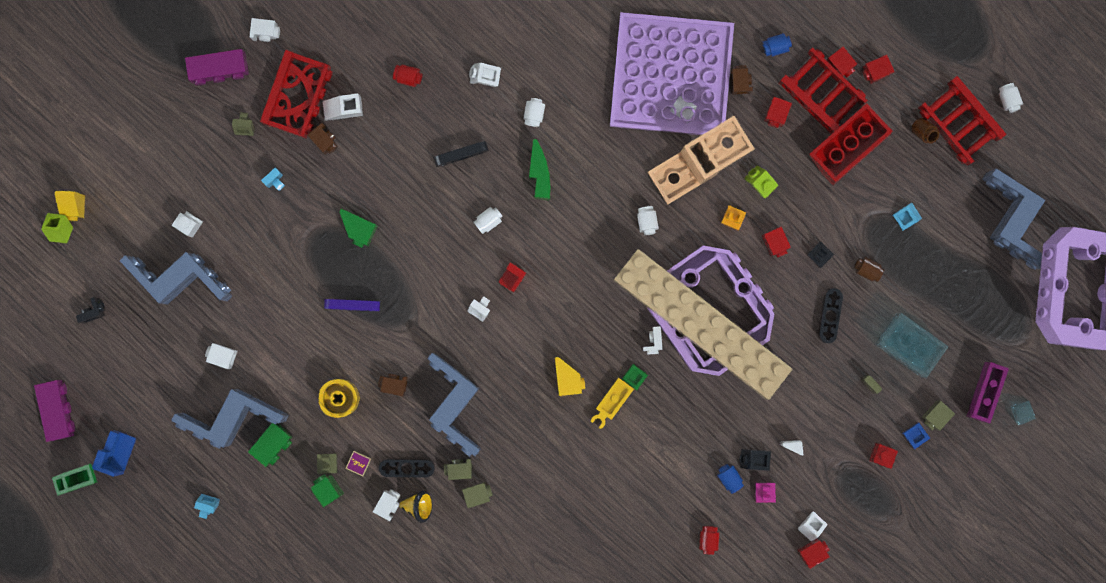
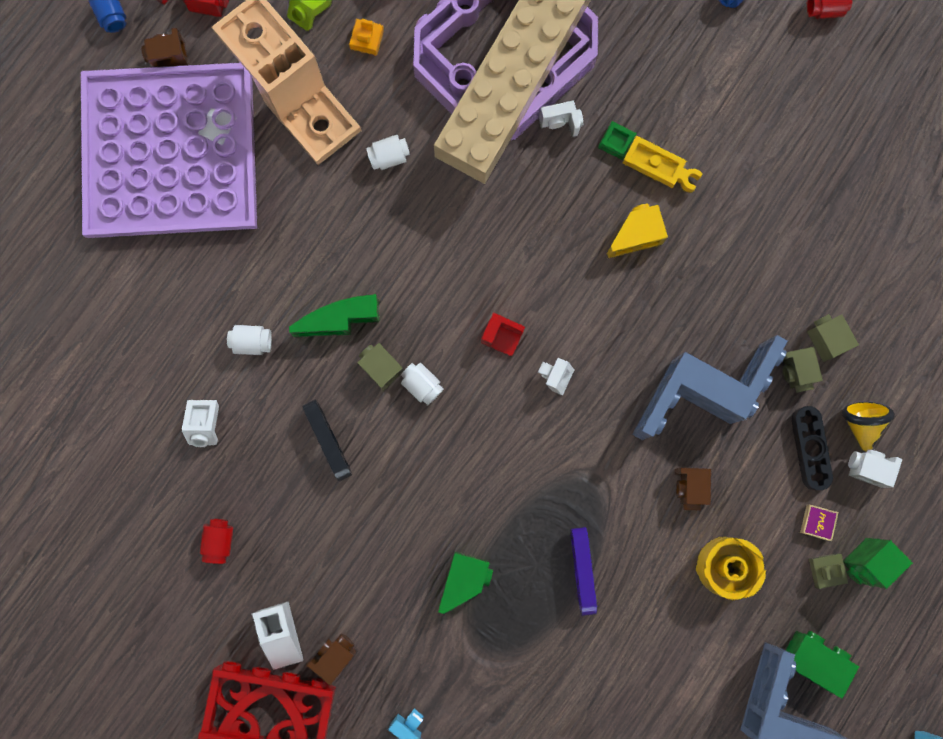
camera: 100 degrees left, 5 degrees down
(504, 194) = (380, 365): none -> olive brick

